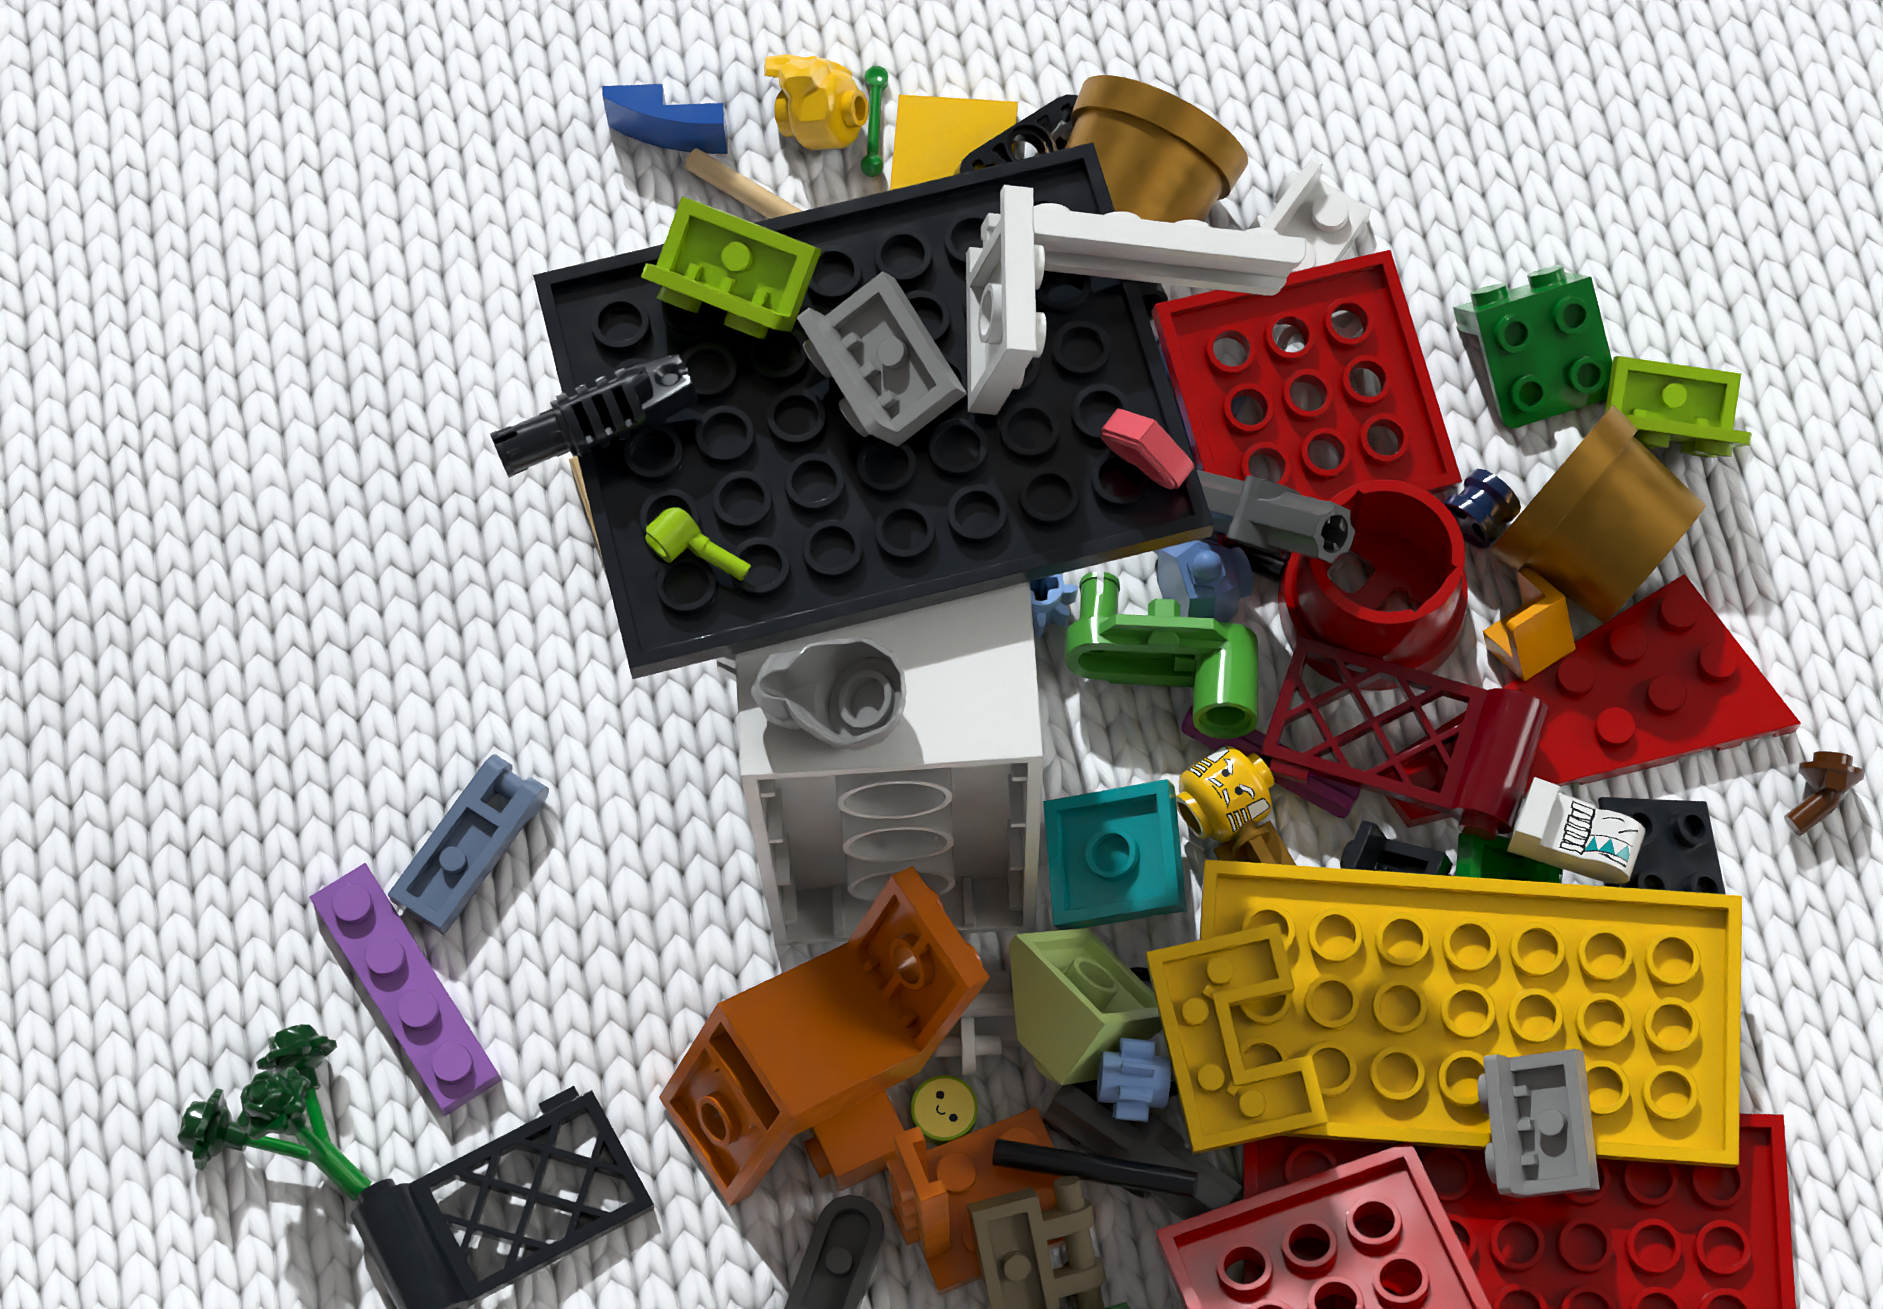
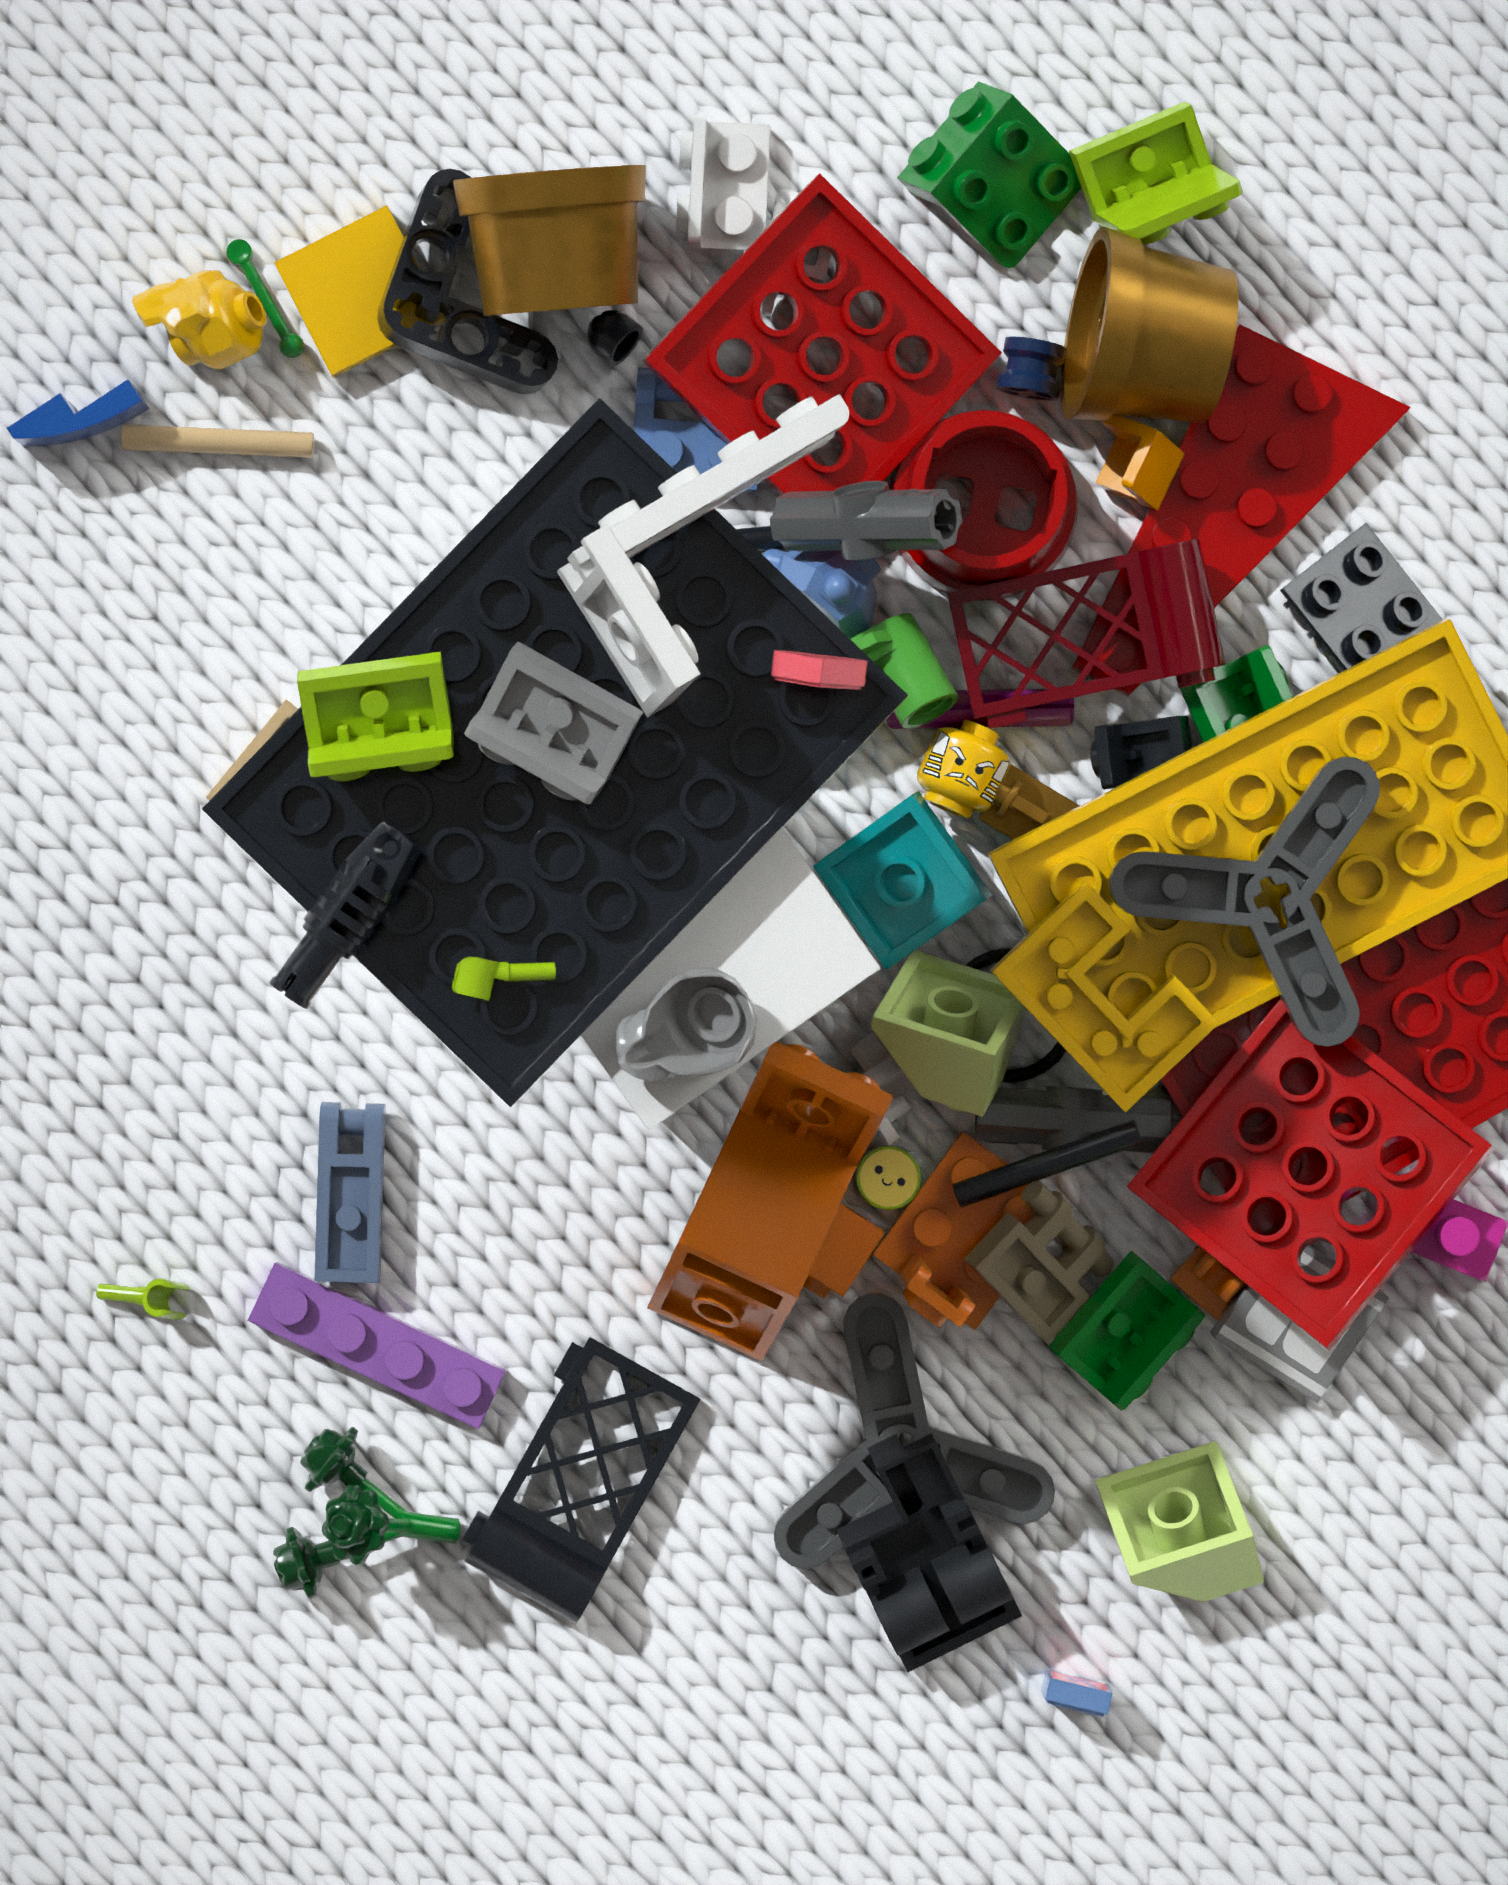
camera: 30 degrees left, 20 degrees up
(244, 831) = (152, 1297): none -> lime hand
(1133, 1079) = (1038, 1075): light blue gear -> none
(1401, 1005) = (1295, 855): none -> dark grey piece
(1538, 1124) = (1389, 921): light grey bracket -> none
(1576, 835) = (1283, 643): white leg -> none
(1830, 777) = (1460, 444): reddish brown plate -> none

